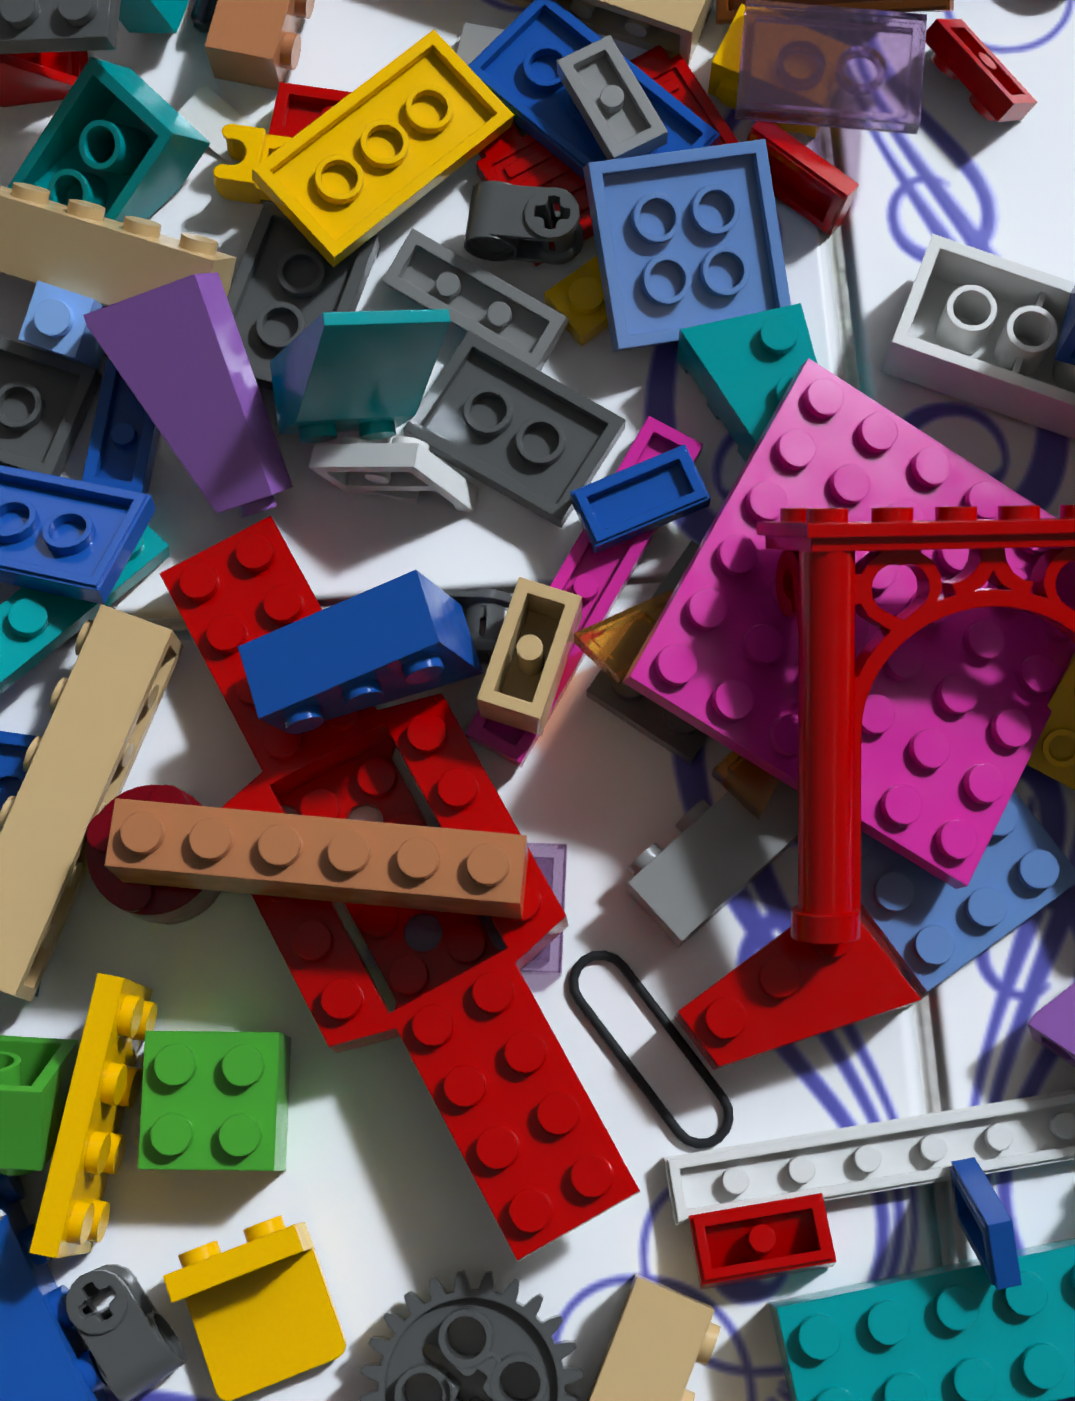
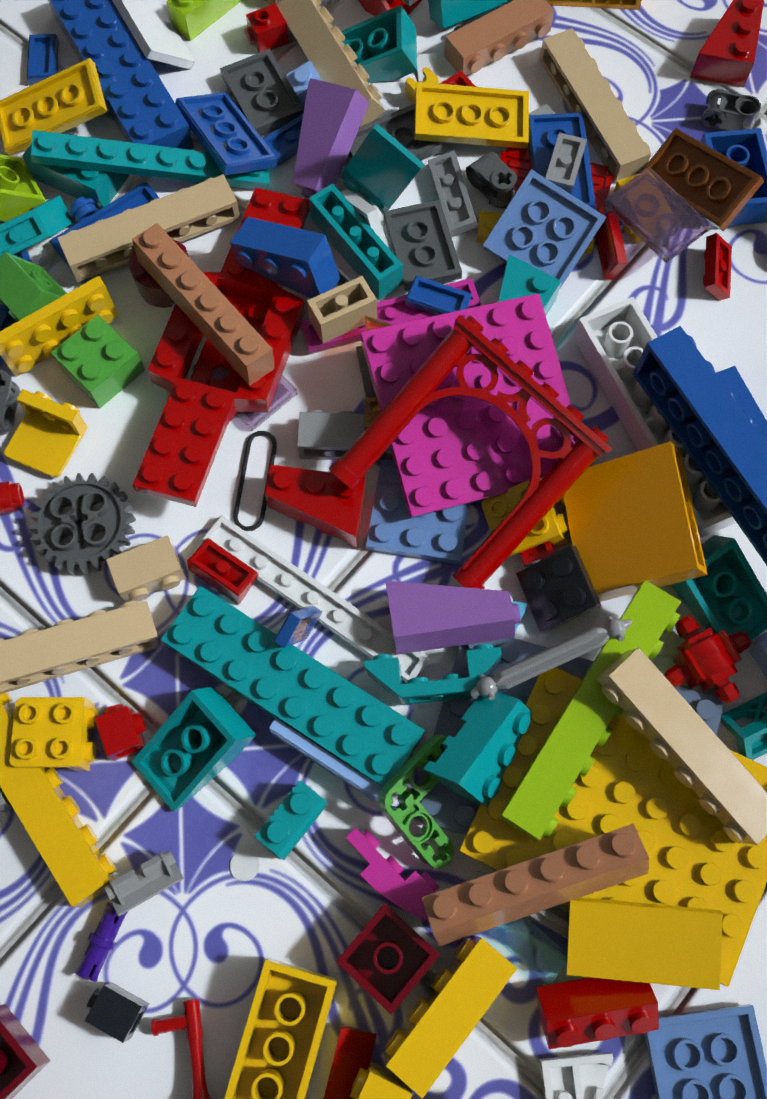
camera: 40 degrees right, 5 degrees down
(416, 519) = (356, 241): none -> teal brick

